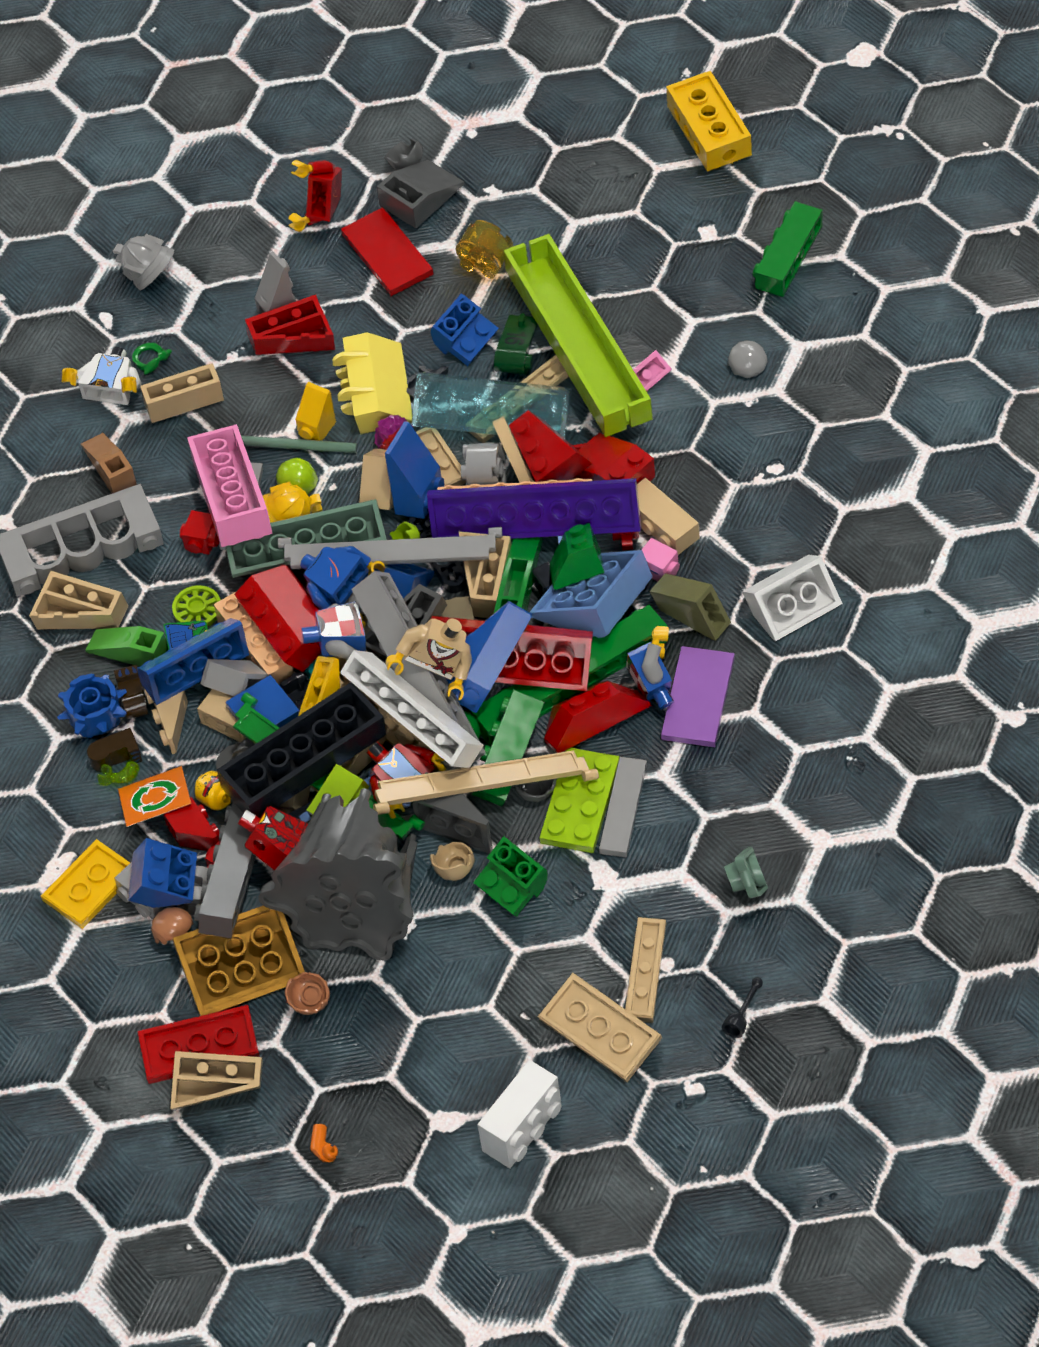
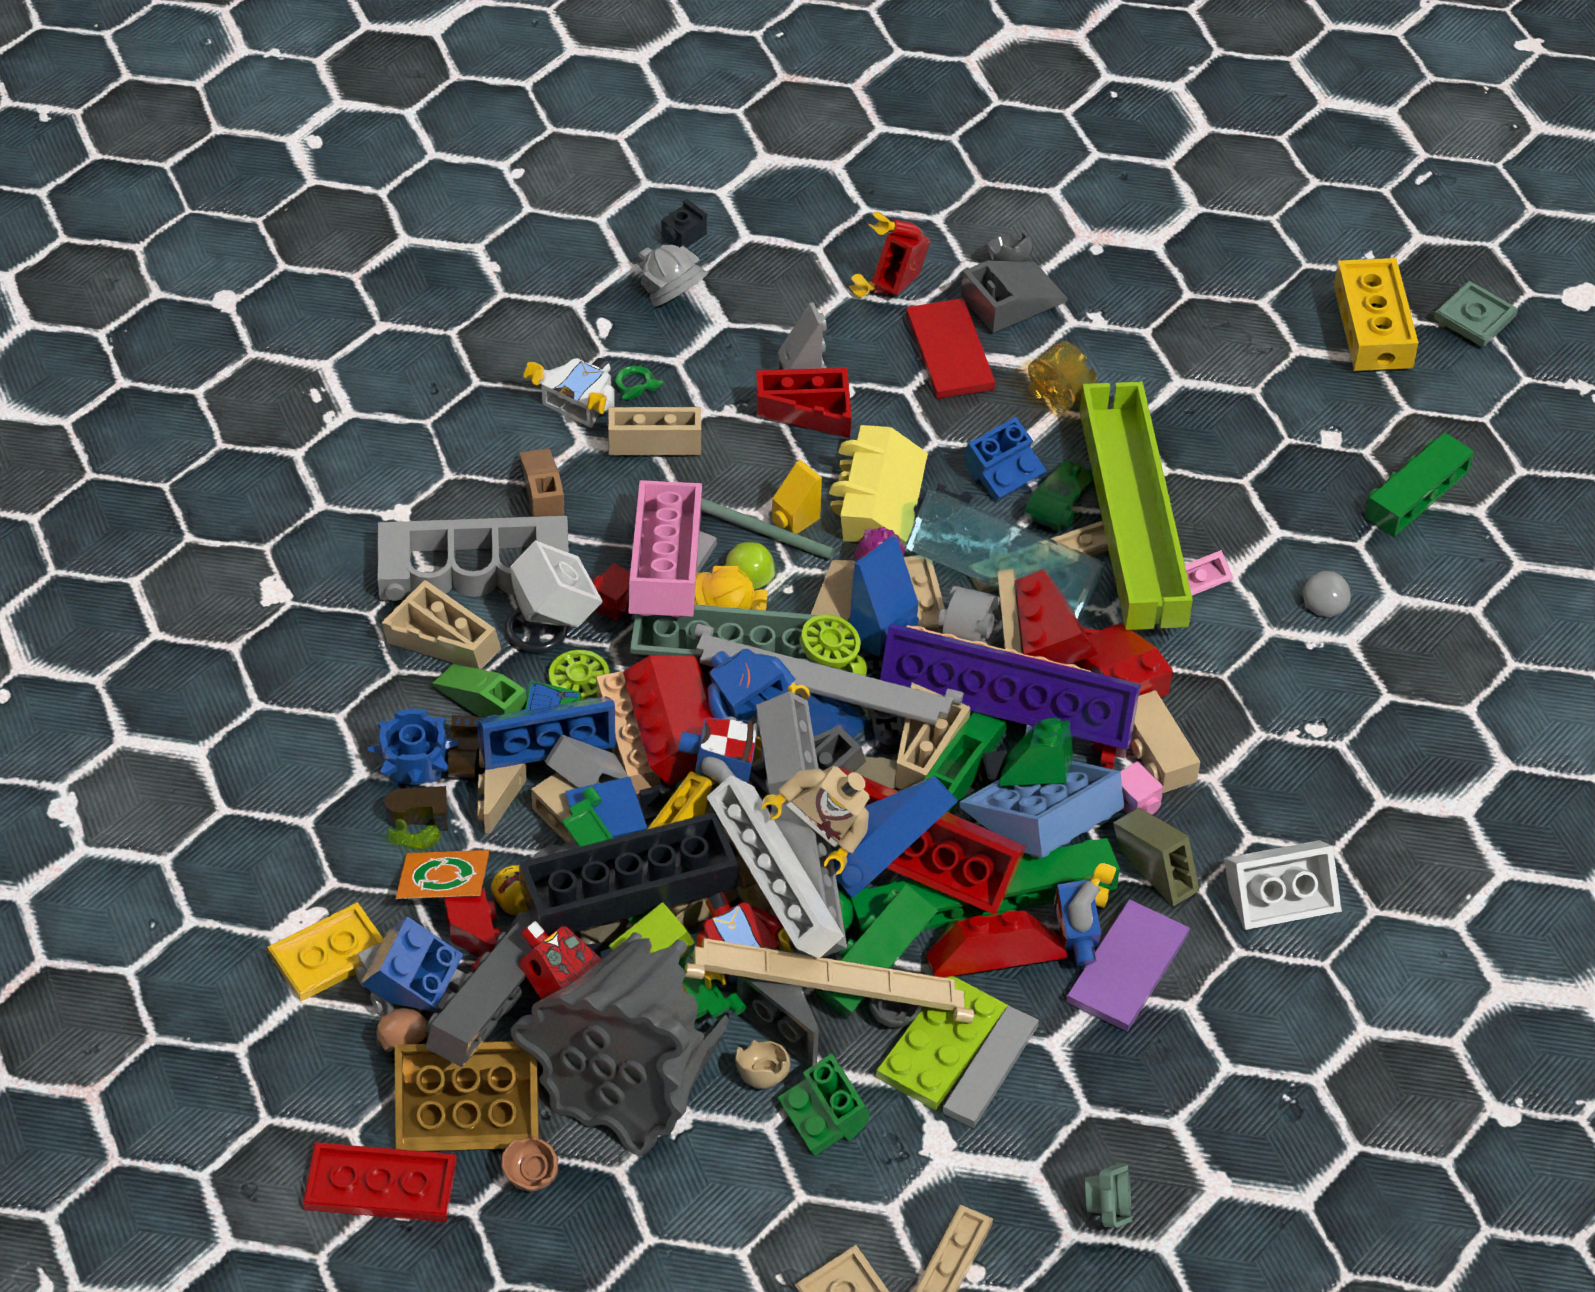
camera: 10 degrees right, 5 degrees down
(139, 215) = (684, 225): none -> black brick
(151, 549) = (550, 593): none -> white piece
(212, 1076) = (377, 1226): tan wedge -> none
(384, 519) = (830, 641): none -> lime wheel
(785, 95) = (1476, 313): none -> sand green plate

